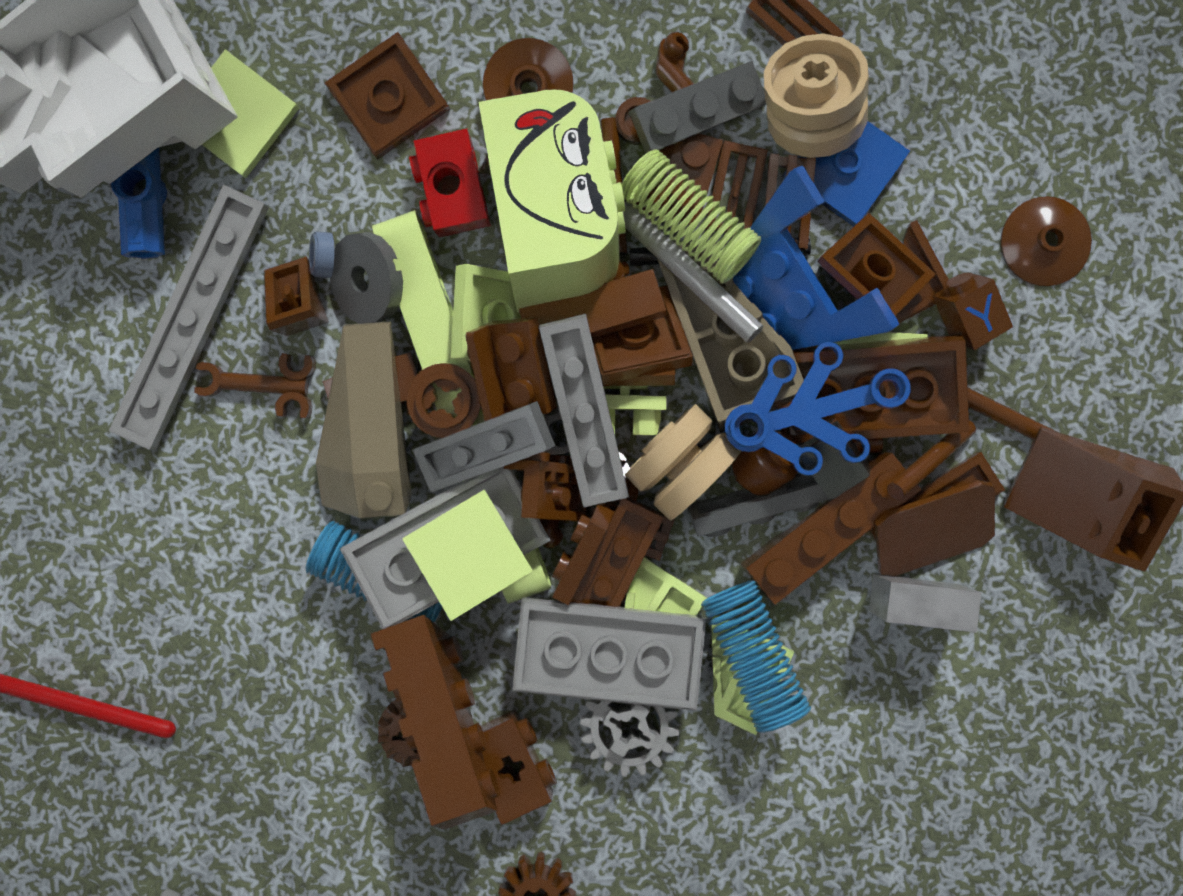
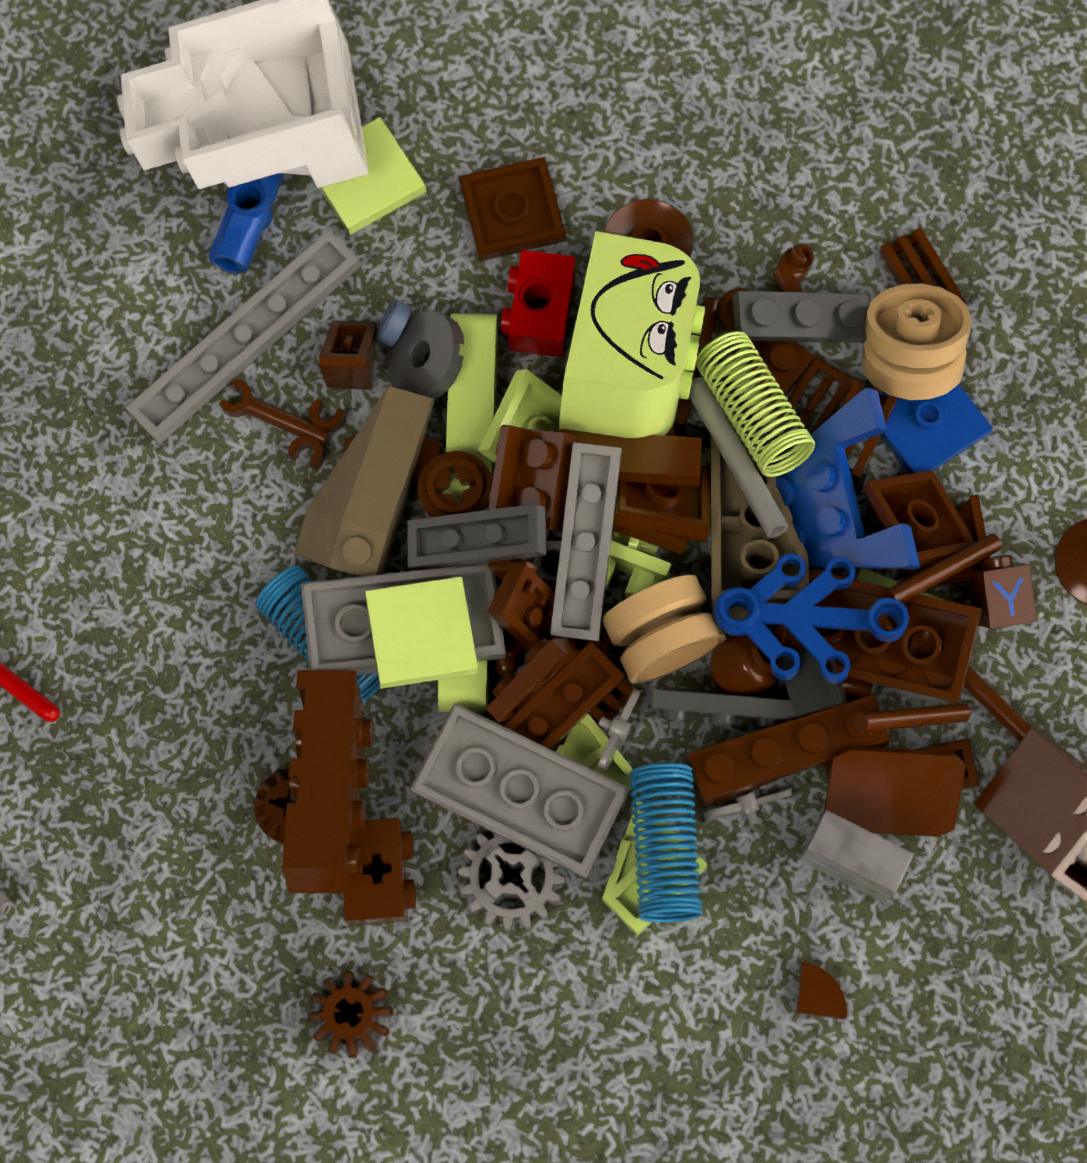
camera: 25 degrees right, 15 degrees down
(674, 562) = (618, 729): none -> light grey piece
(812, 583) = (748, 805): none -> light grey piece
(915, 314) = (944, 569): none -> reddish brown bar
(926, 722) = (819, 994): none -> reddish brown tile

